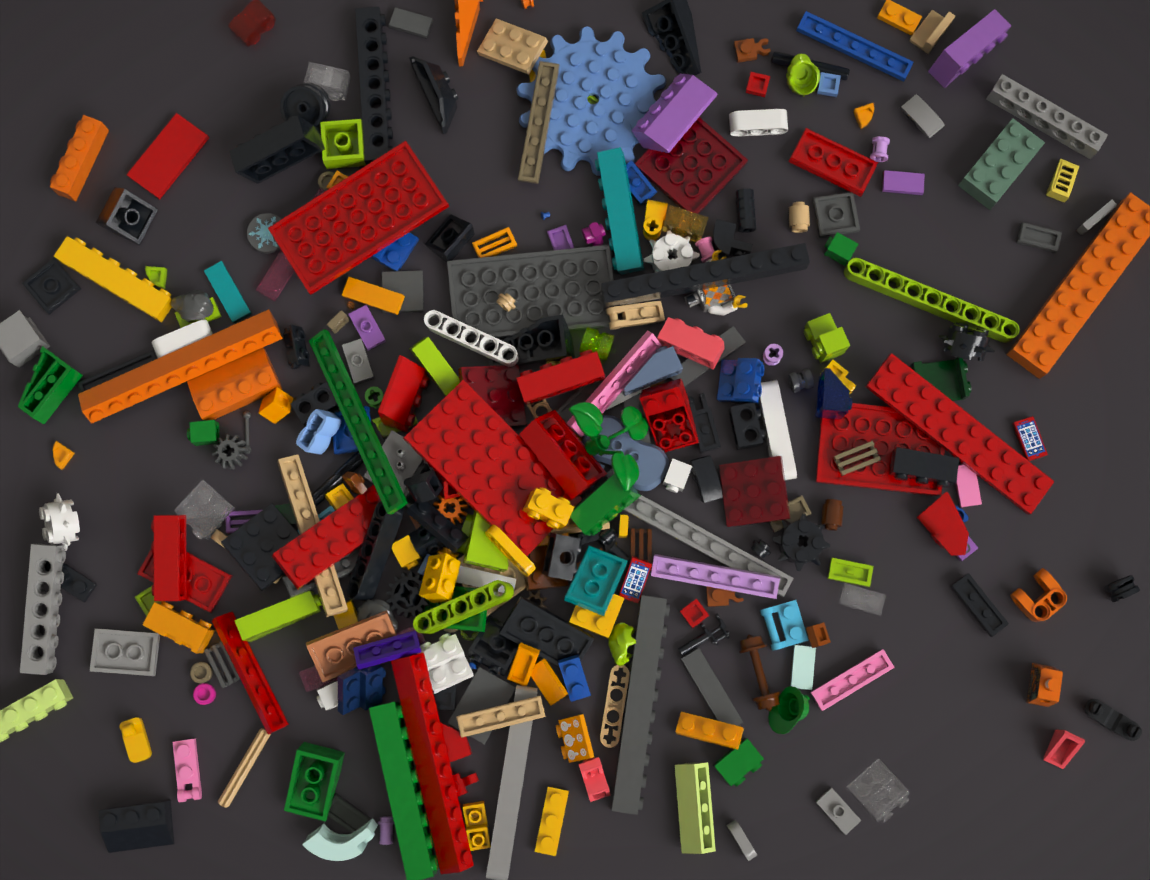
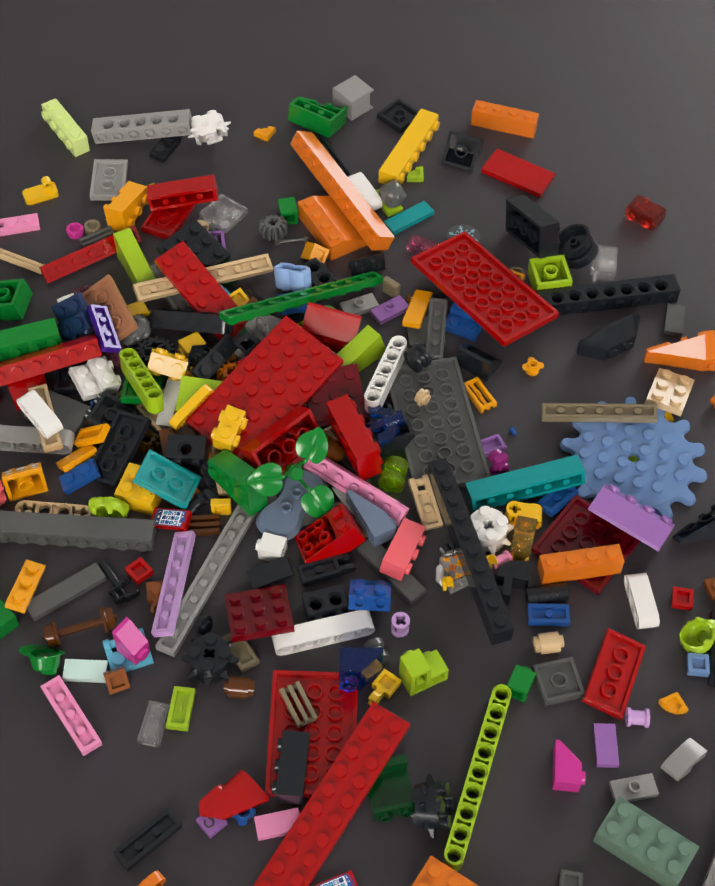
camera: 85 degrees right, 25 degrees down
(405, 278) = (436, 328): none -> dark grey tile
(454, 301) = (417, 358): none -> black wheel
(463, 188) = (532, 366): none -> light orange plate
(505, 720) = (39, 414): none -> white beam
(544, 340) = (388, 422): none -> clear blue animal
(566, 401) = (335, 450): none -> reddish brown brick
(724, 171) = (580, 564): none -> orange brick
(768, 212) = (548, 614): none -> blue plate
(791, 617) = (131, 641): none -> slope
(929, 221) = (566, 769): none -> dark pink slope
(945, 165) = (634, 788): none -> light grey plate

